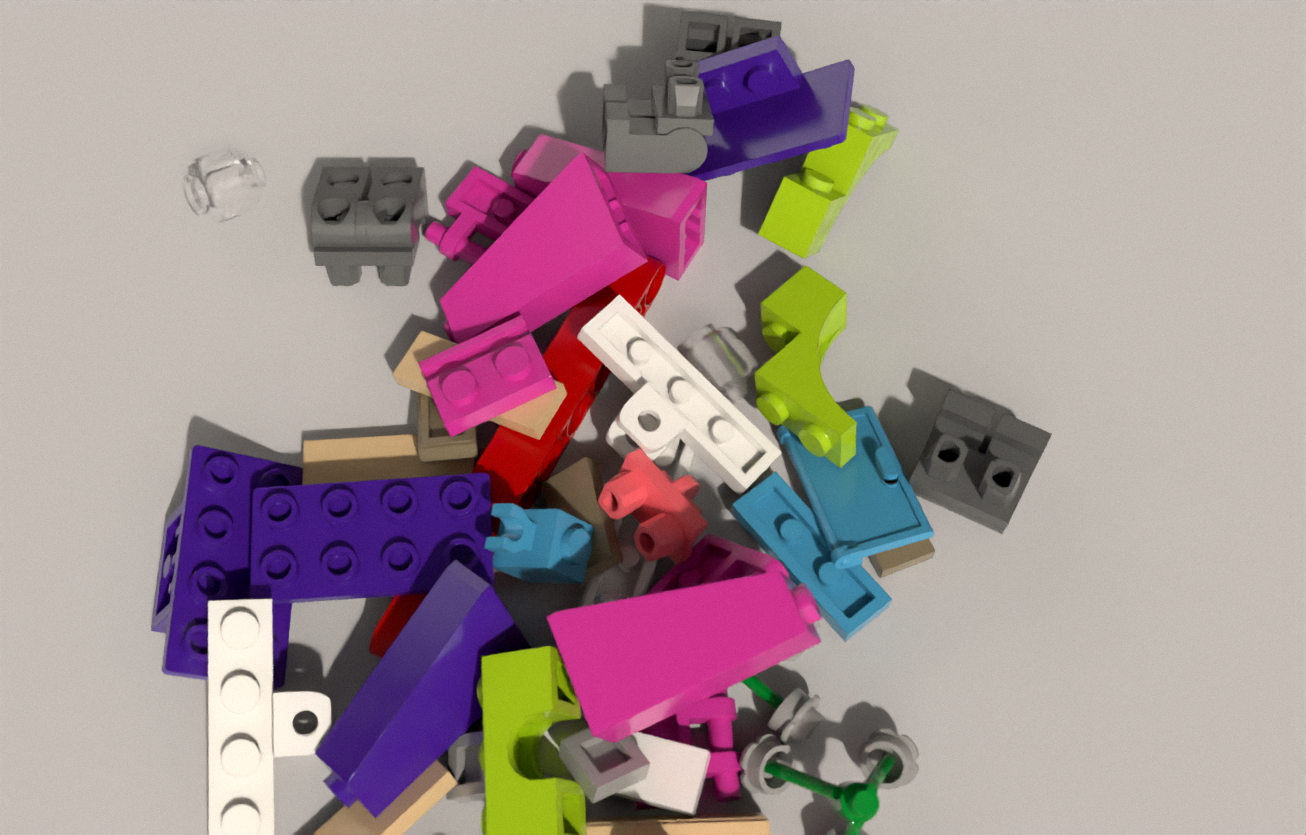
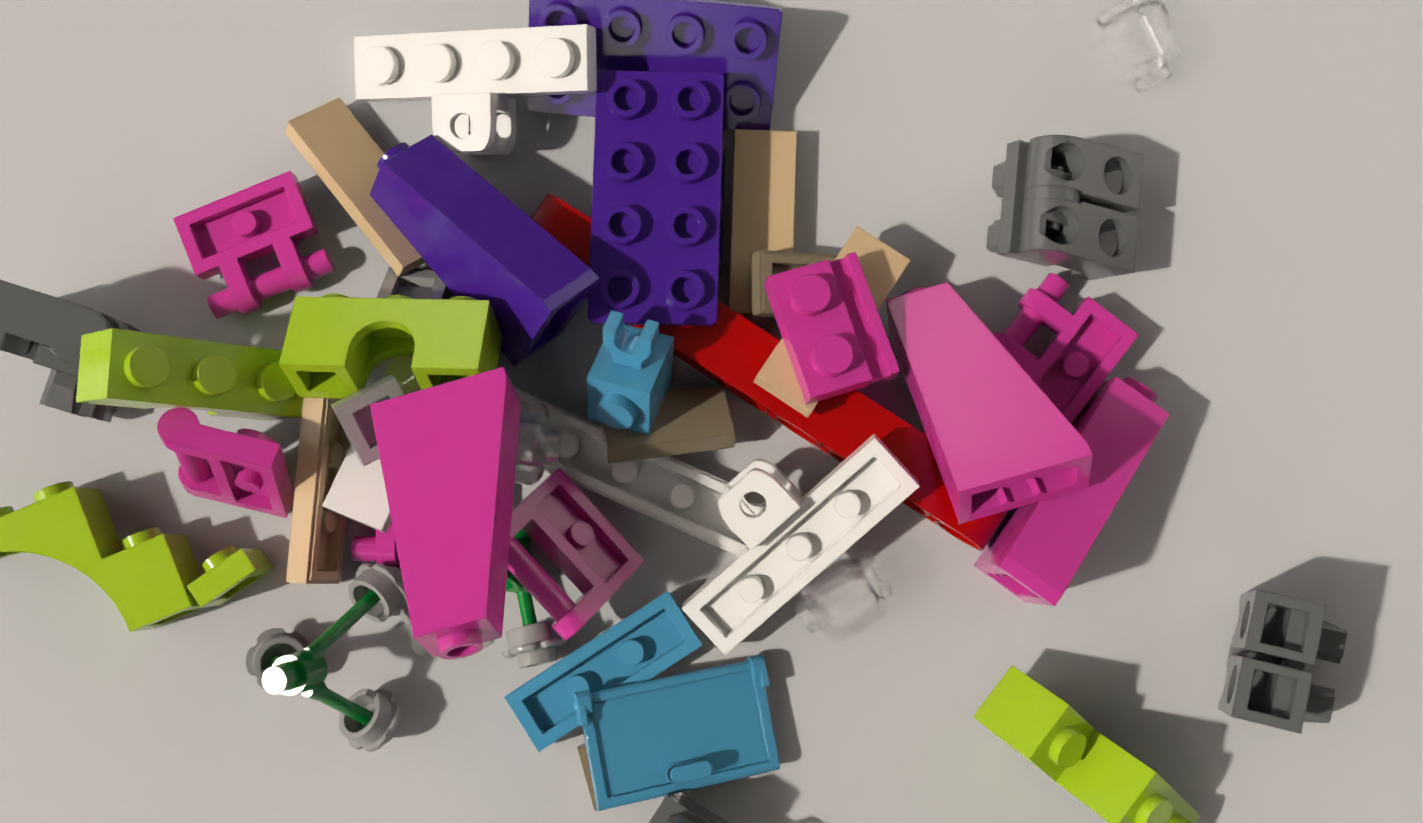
camera: 90 degrees right, 20 degrees up
(658, 132) = (1144, 555): dark grey hips -> none
(661, 506) = (667, 511): coral hips -> none
(770, 108) = (1166, 681): dark purple bracket -> none
(800, 326) = (888, 701): lime arch -> none

